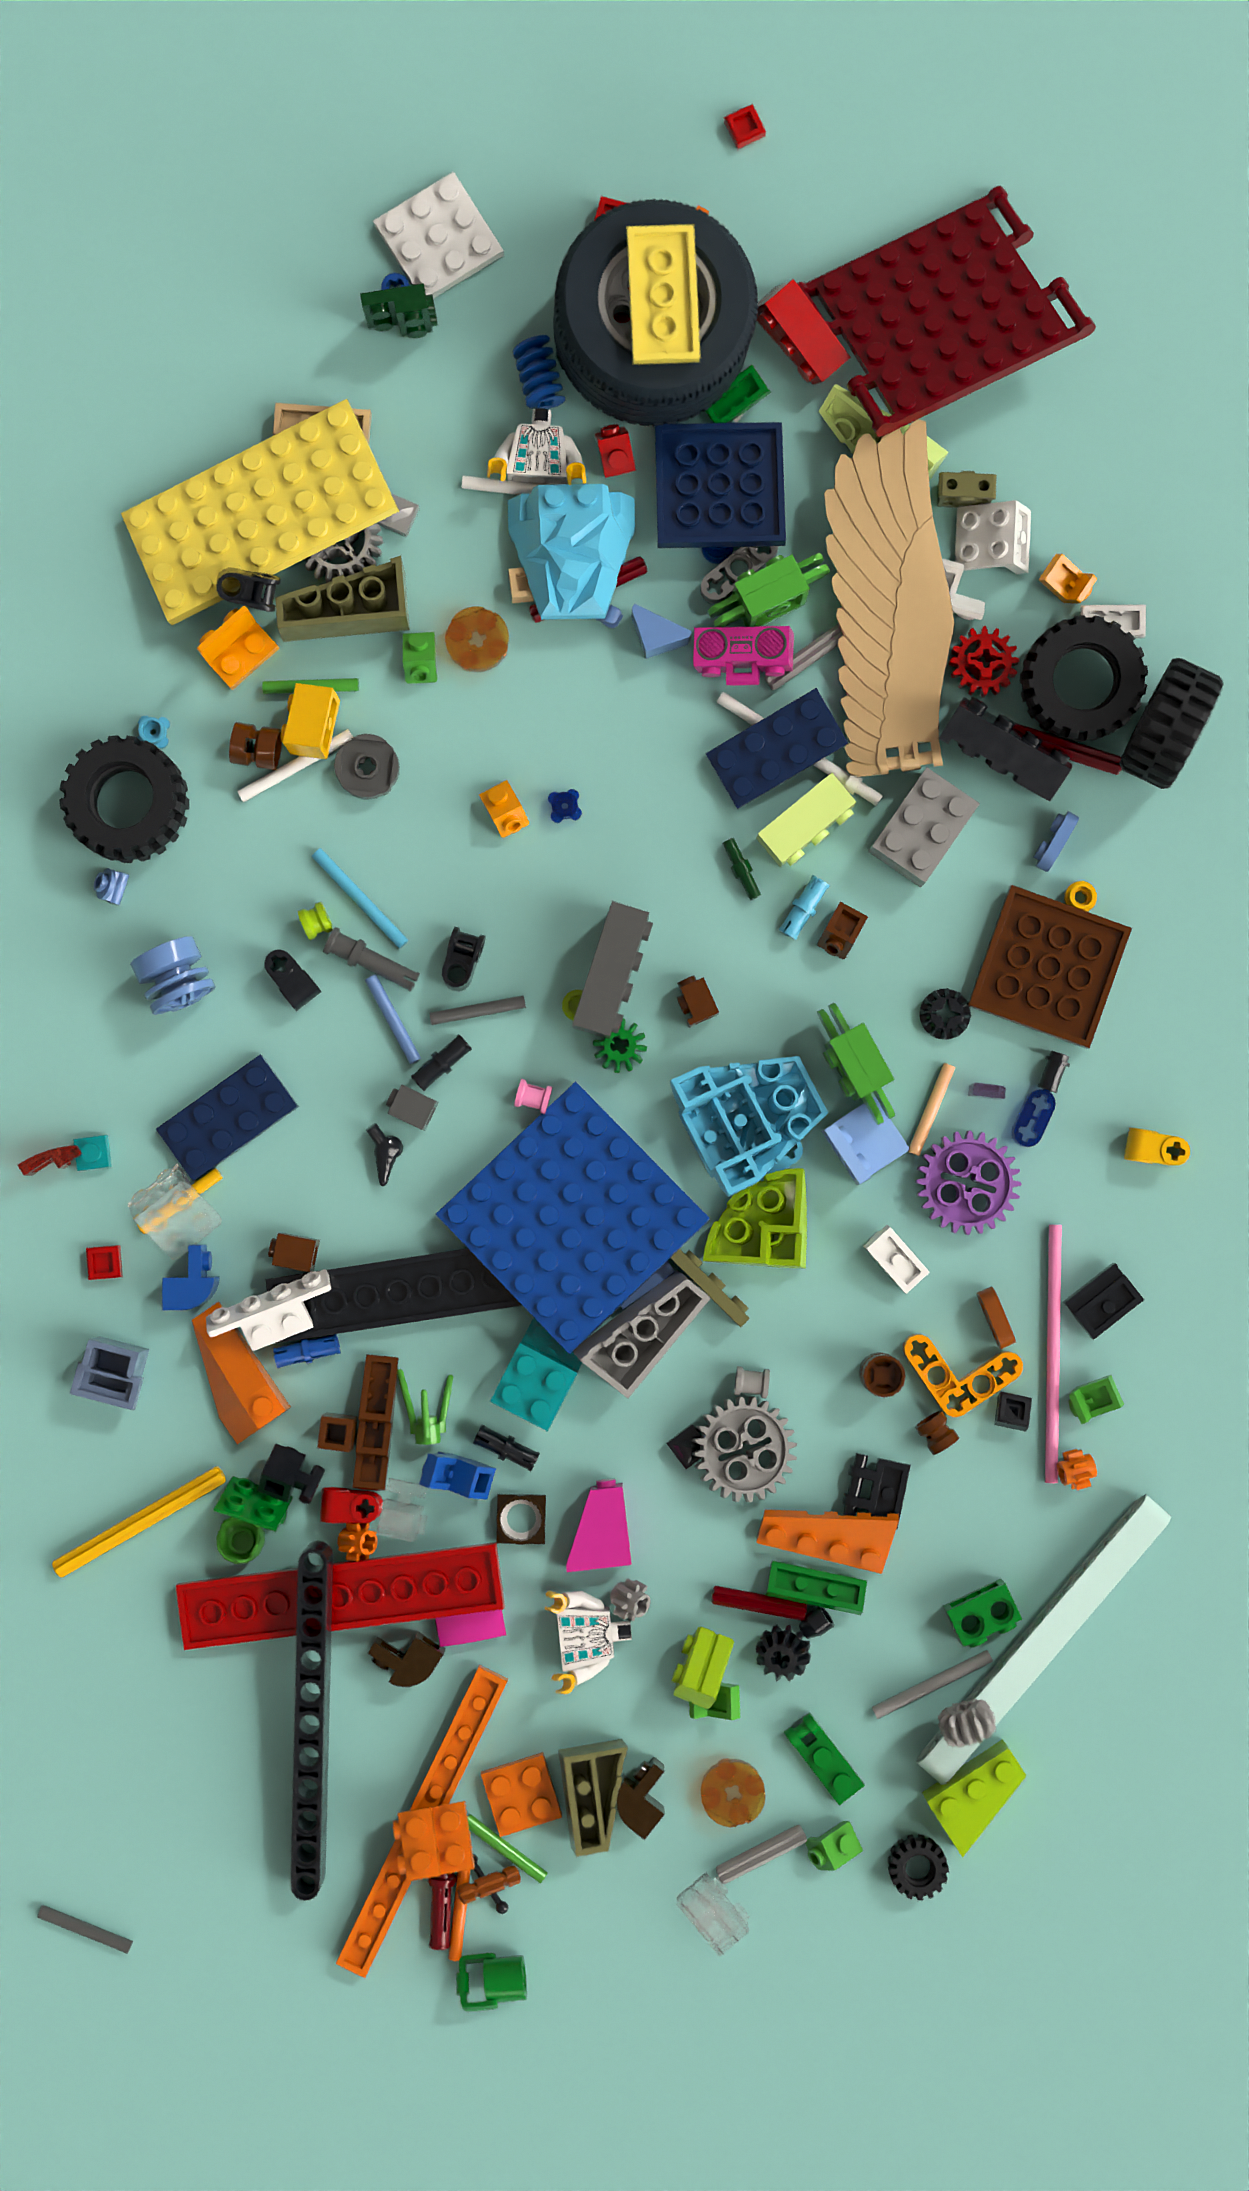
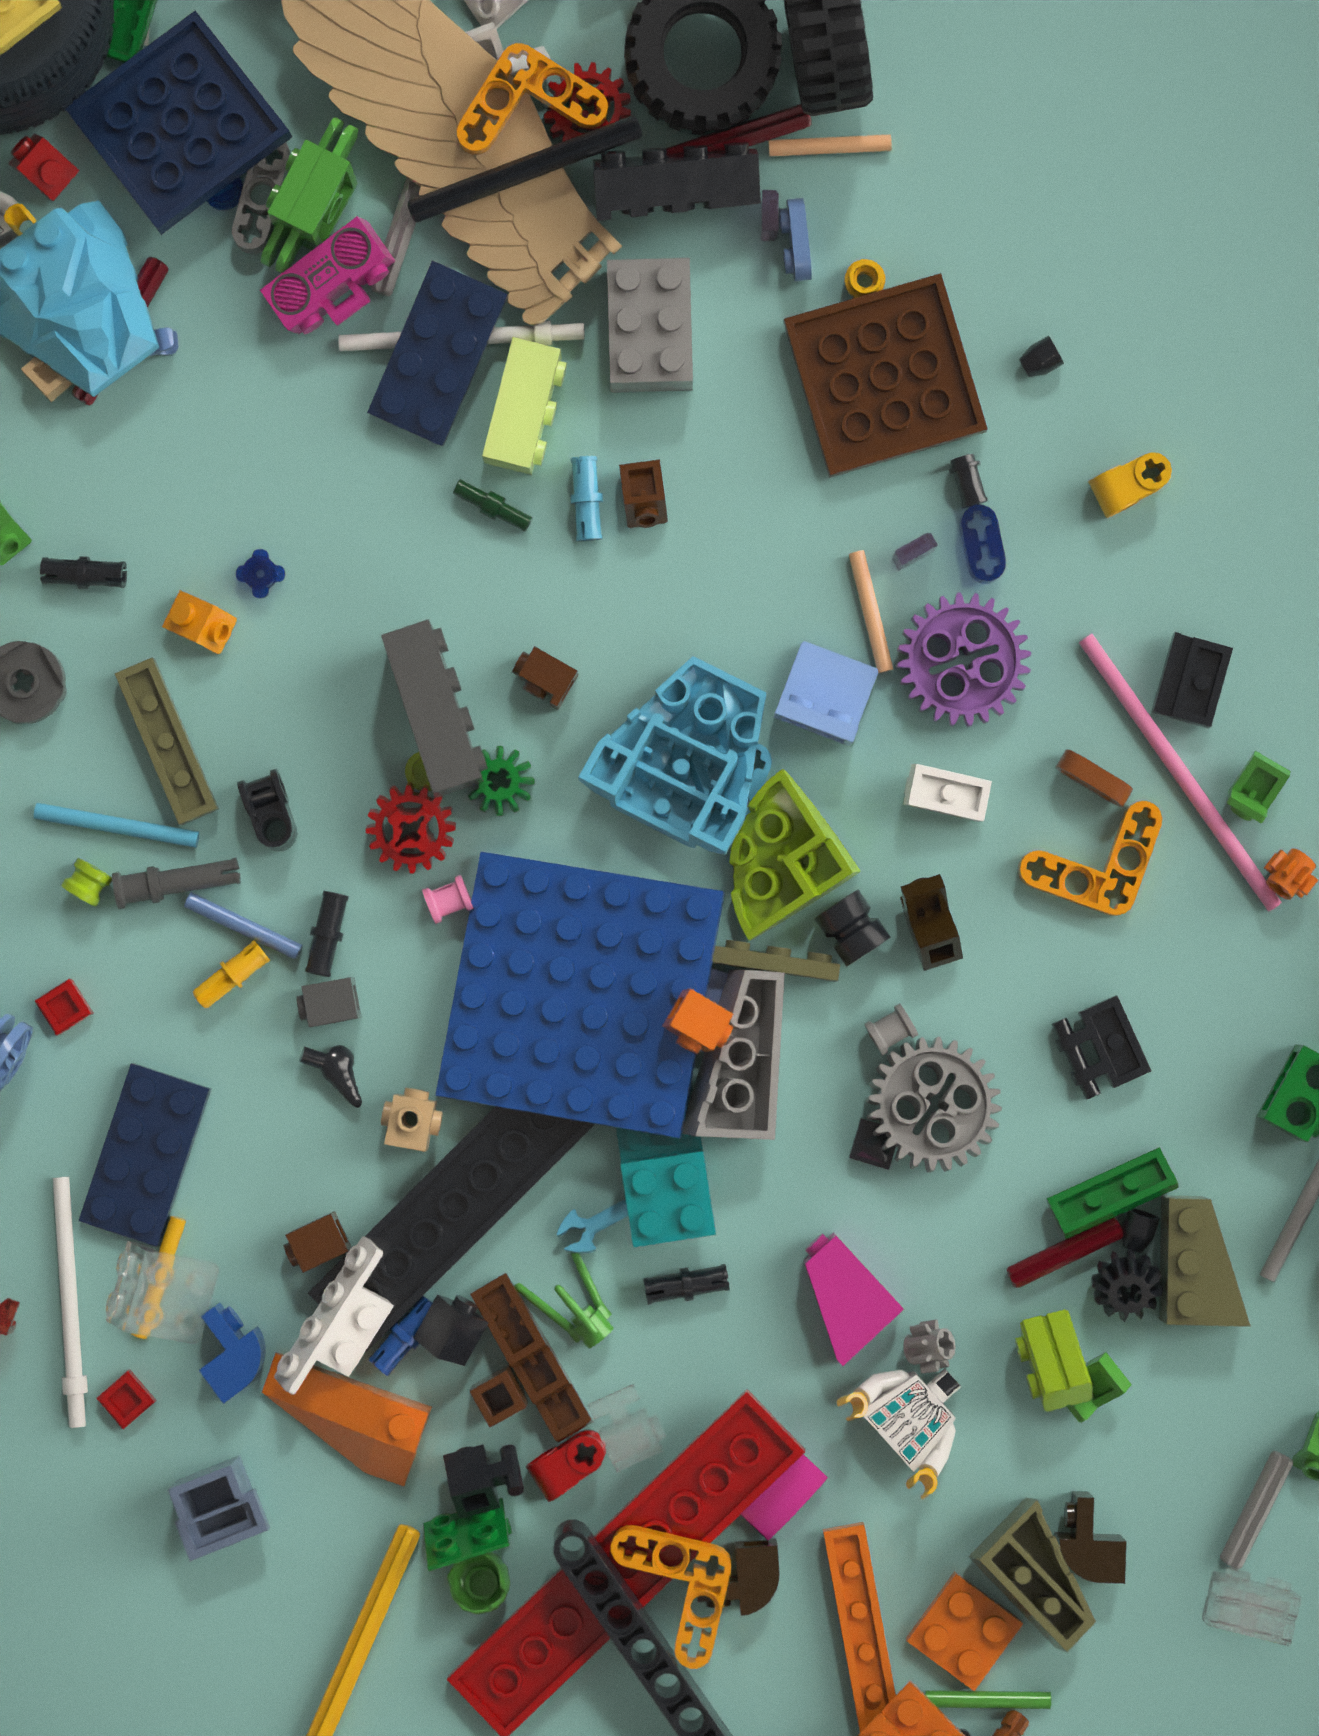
camera: 35 degrees left, 0 degrees up
(80, 1227) = (74, 1383): none -> white bar
(95, 1153) = (32, 1292): teal plate -> none
(244, 988) = (64, 1007): none -> red tile
(294, 982) = (111, 961): black piece -> none
(338, 1368) = (451, 1329): none -> black brick
(357, 1541) = (602, 1494): orange gear -> none
(363, 1044) = (231, 974): none -> yellow axle
(377, 1641) = (699, 1583): none -> light orange beam
(397, 1222) = (399, 1131): none -> tan brick
(429, 868) = (166, 741): none -> olive plate
(454, 725) = (83, 572): none -> black pin
(457, 1475) = (656, 1349): blue brick -> none
(460, 632) = (38, 442): clear orange plate -> none
(474, 1367) = (592, 1225): none -> medium azure bar
(477, 1010) = (324, 852): dark grey bar -> none
(509, 1536) = (755, 1373): dark brown piece -> none
(540, 1020) = (397, 815): none -> red gear
(633, 1290) = (698, 1022): none -> orange brick
(657, 633) = (225, 323): medium blue slope -> none
(738, 1810) = (1199, 1483): clear orange plate -> none
(774, 1300) = (852, 927): none -> black wheel
(825, 1759) = (1251, 1363): green plate -> none
(826, 1333) = (931, 922): none -> dark brown brick
(835, 1673) = (1196, 1267): none -> olive wedge
(846, 1540) = (1104, 1122): orange wing -> none
(857, 1062) = (759, 618): bright green brick -> none
(882, 1374) = (1019, 922): reddish brown wheel -> none
(916, 672) = (524, 169): none -> black axle
(934, 1024) = (808, 521): black gear -> none
(937, 1433) = (1120, 941): reddish brown wheel -> none
(960, 620) = (531, 83): none -> light orange beam
(1013, 1411) = (1182, 862): black tile -> none
(1050, 812) = (769, 215): none -> clear purple tile
(1120, 796) = (829, 145): none -> light nougat bar
(1156, 1027) = (1041, 358): none -> black hose

